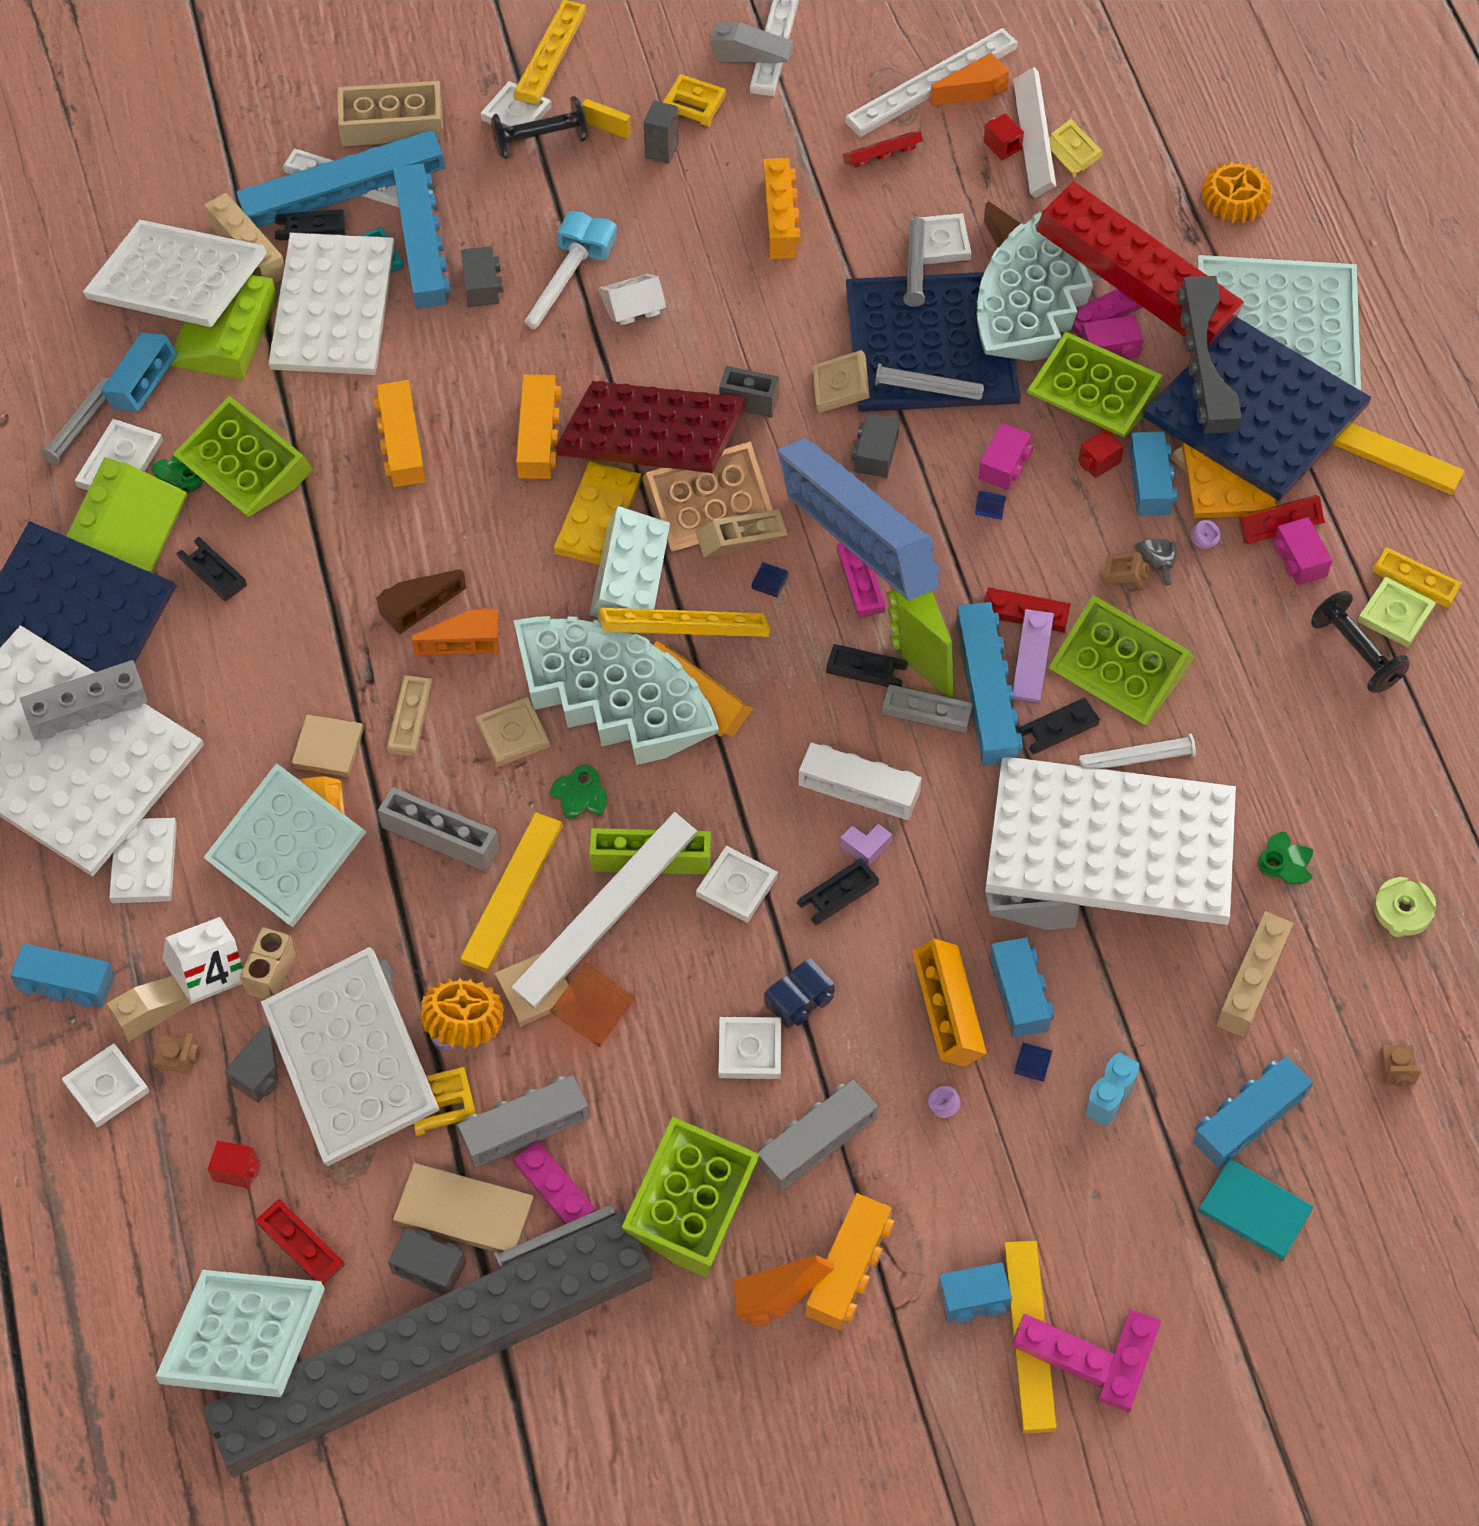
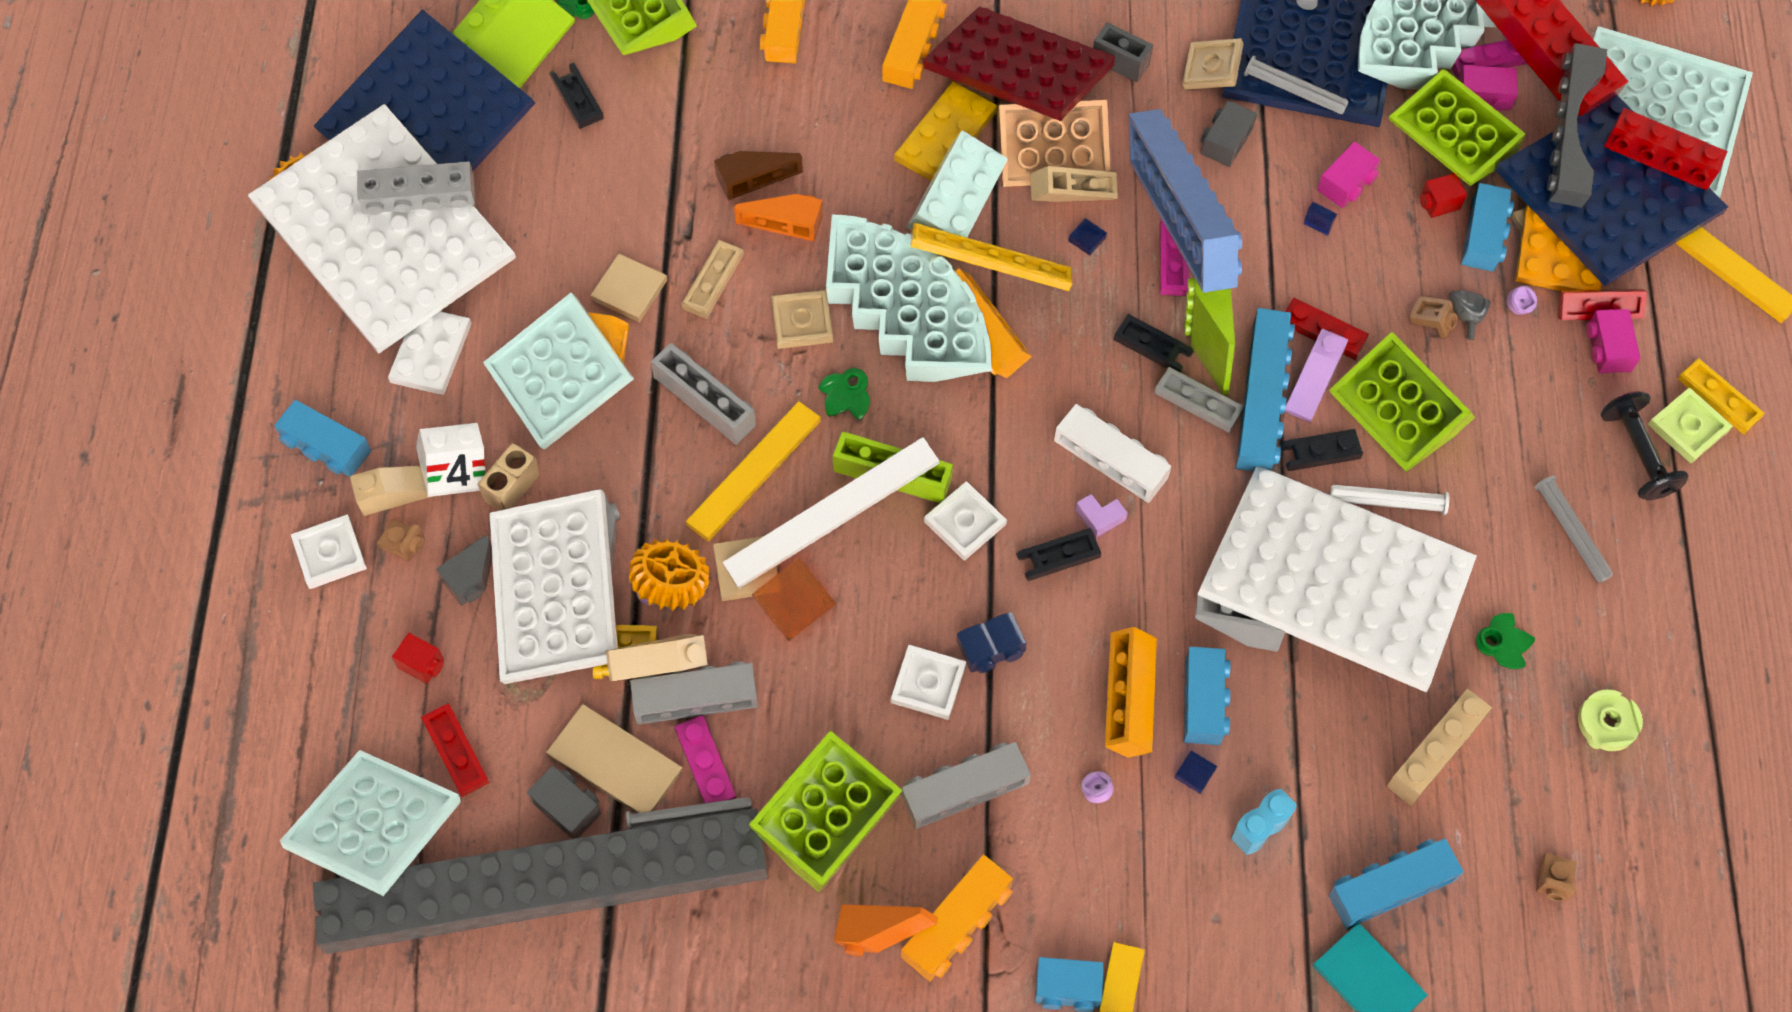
camera: 15 degrees right, 5 degrees up
(477, 1095) = (657, 657): none -> tan slope
(1297, 357) = (1665, 149): none -> red brick
(1318, 737) = (1574, 529): none -> light grey axle

